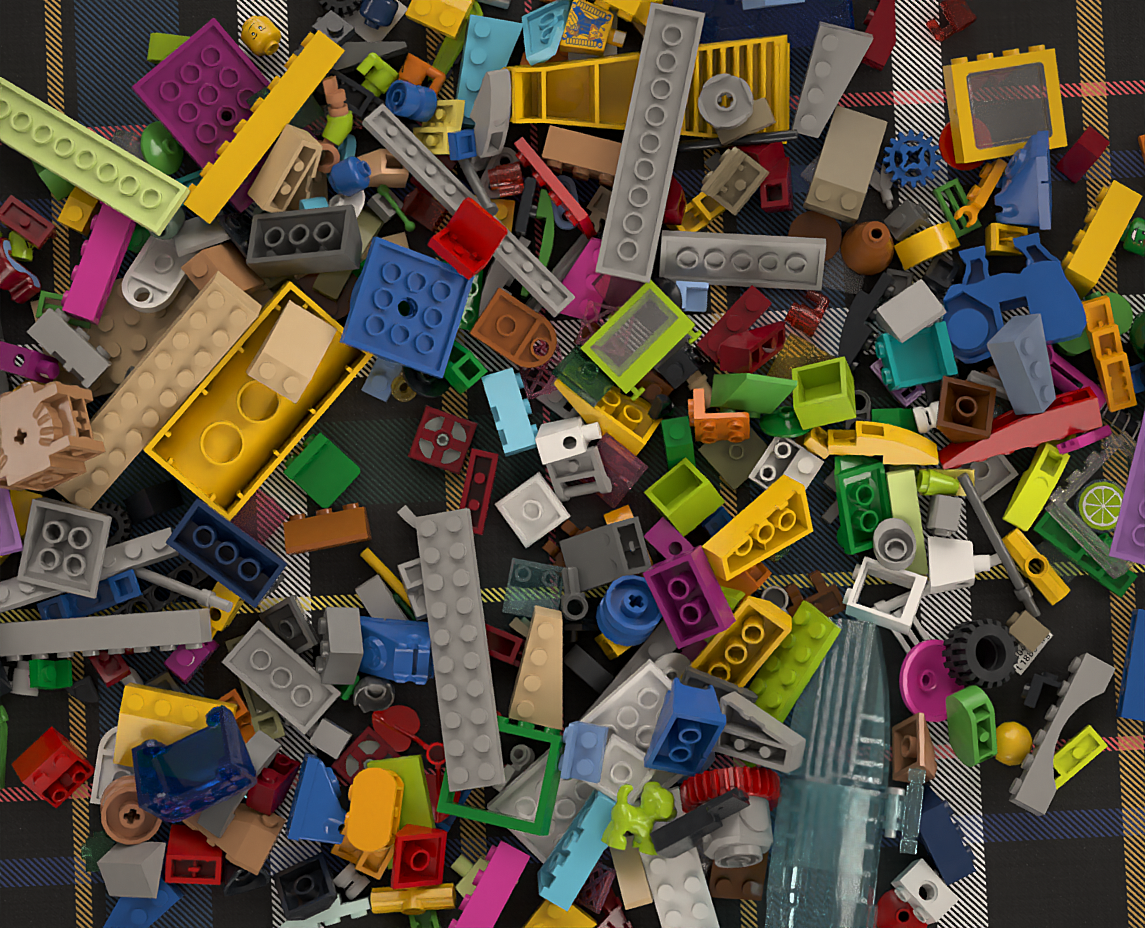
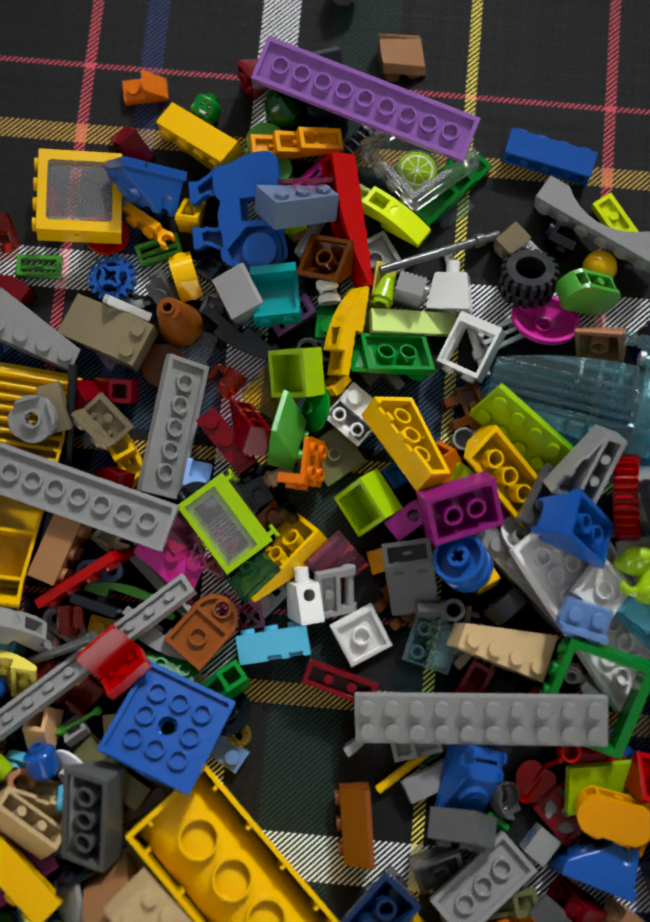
camera: 80 degrees left, 5 degrees down
(259, 516) = (335, 885): clear pink piece -> none
(291, 352) = (191, 845): tan slope -> none
(321, 470) = (301, 820): green bracket -> none
(442, 440) = (289, 706): dark red piece -> none
(462, 144) = (30, 655): blue tile -> none
(677, 441) = (319, 502): green slope -> none
(876, 183) = (126, 307): none -> white tile
(894, 544) = (430, 333): light grey hat -> none
(918, 92) = (39, 275): none -> bright green tile
(1046, 579) = (469, 222): yellow piece -> none
(1058, 383) = (305, 180): none -> clear pink window
(1084, 439) = (364, 174): dark pink tile -> none

